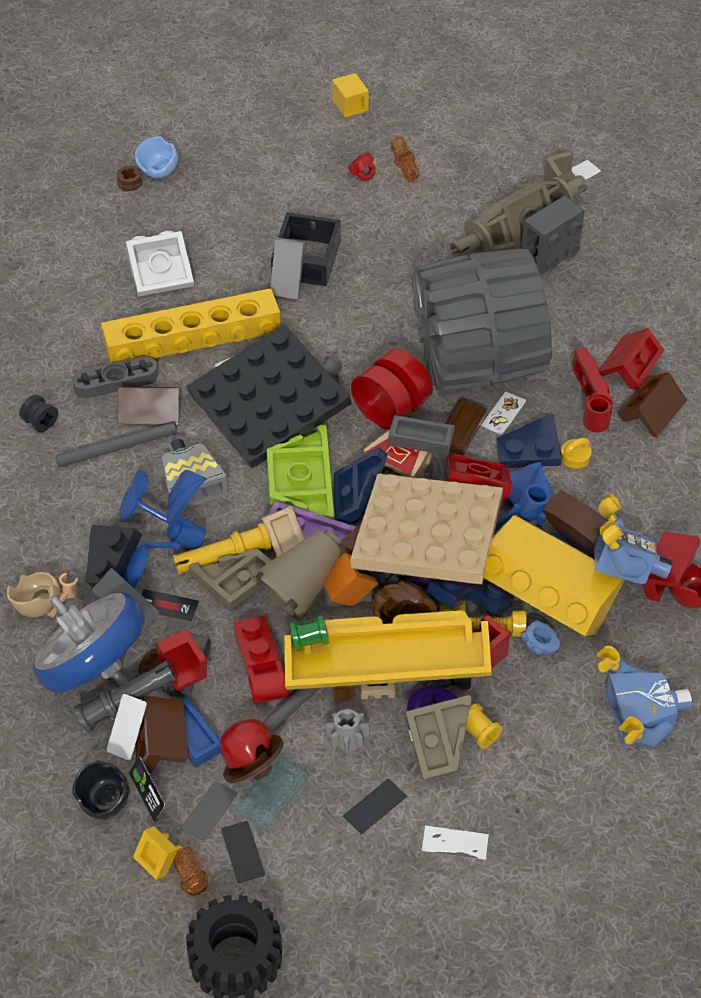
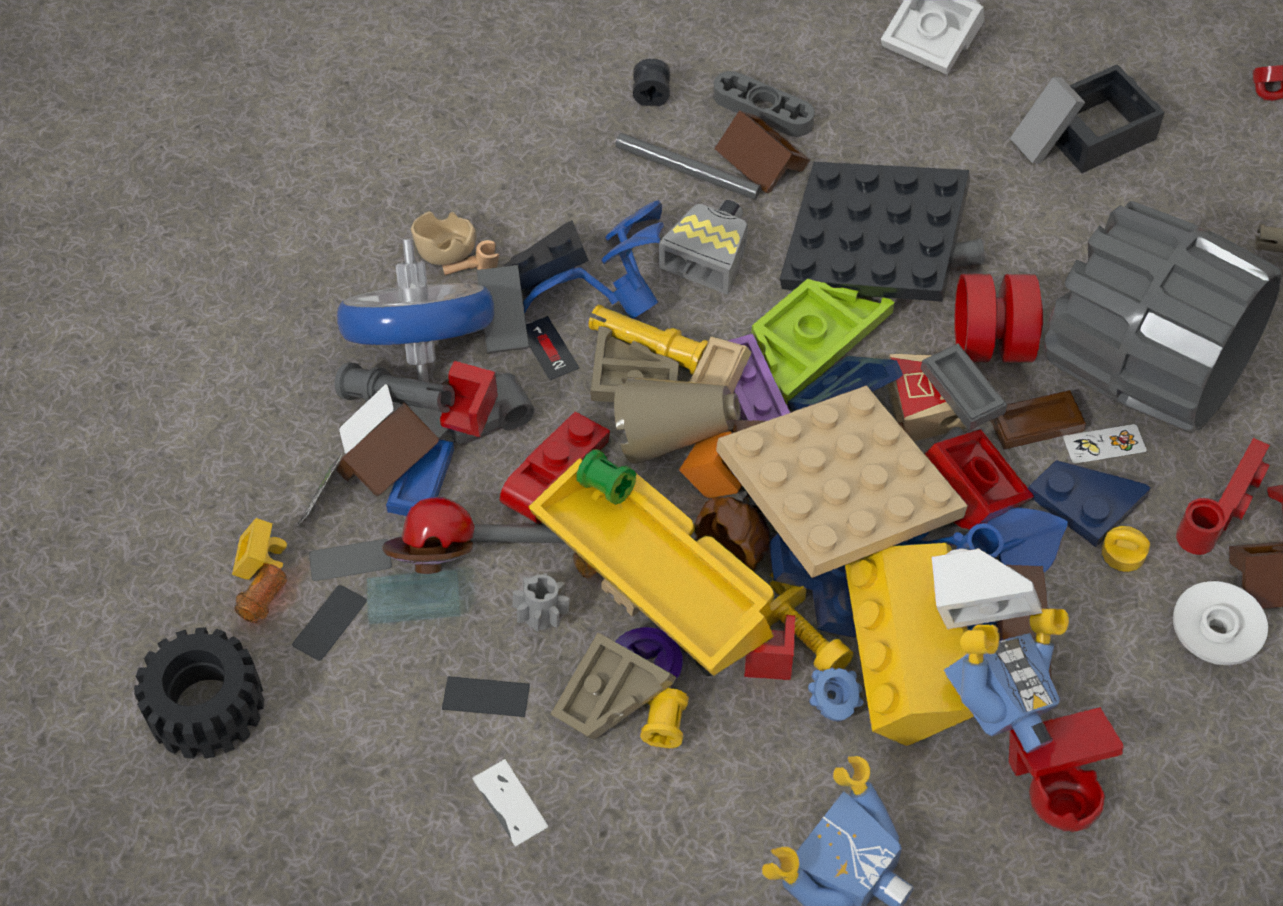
camera: 50 degrees right, 5 degrees up
(101, 789) = (279, 453): black hair -> none
(191, 326) = (890, 110): yellow brick -> none
(566, 516) = (980, 589): none -> white slope
(659, 449) = (1227, 608): none -> white dish

